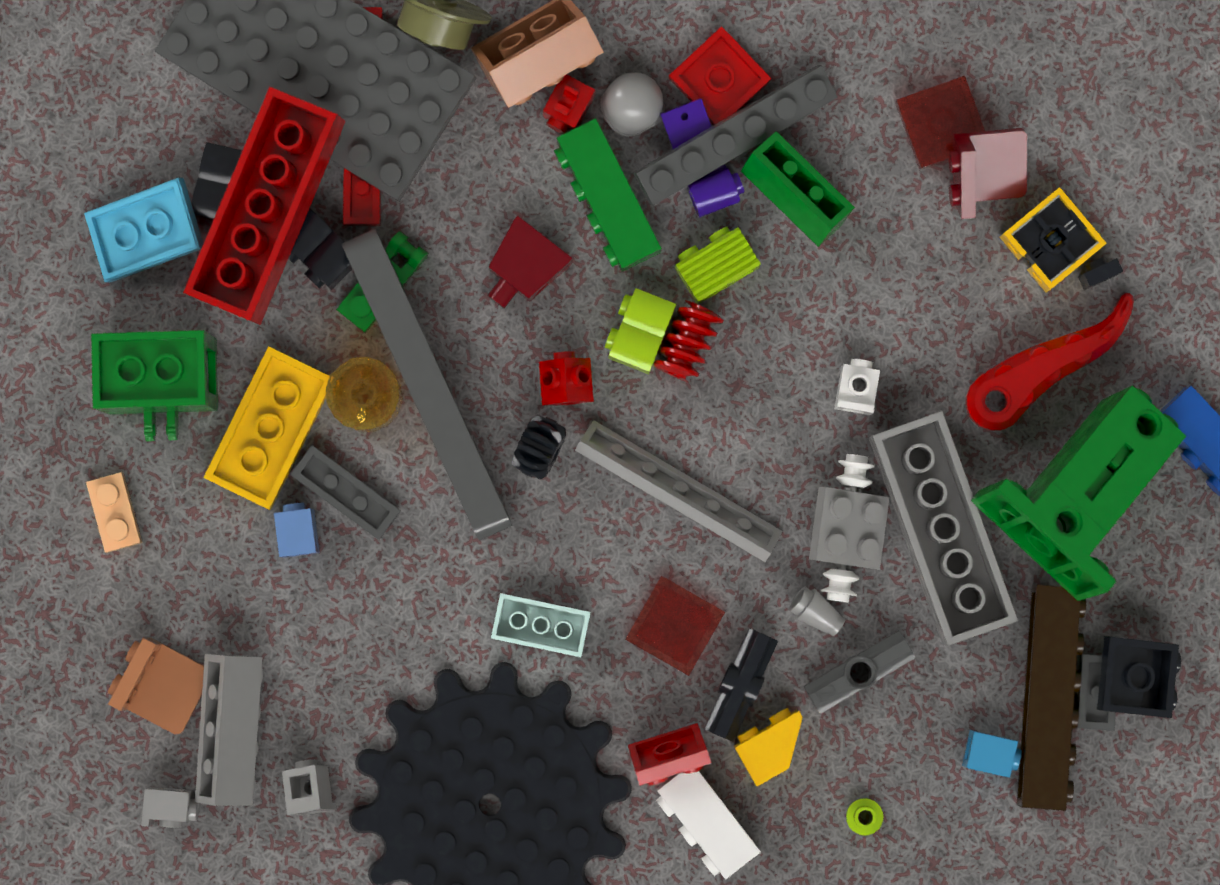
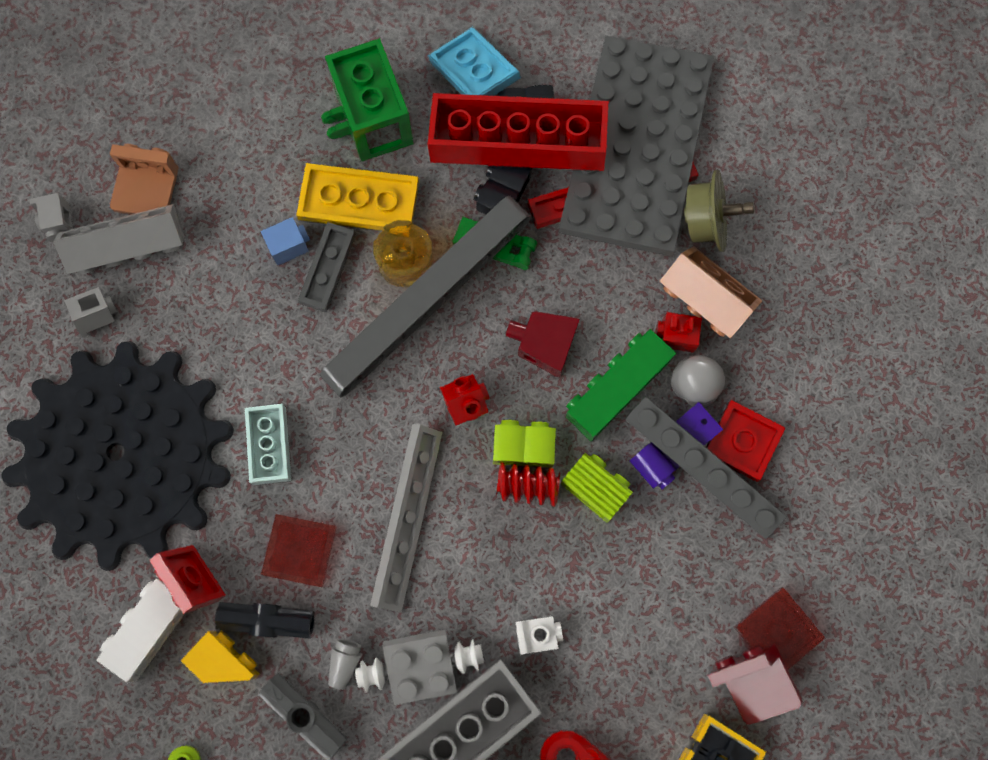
camera: 70 degrees right, 10 degrees down
(114, 512) = (263, 114): light nougat plate -> none
(539, 447) = (405, 395): black gear -> none
(797, 189) = (680, 530): green brick -> none

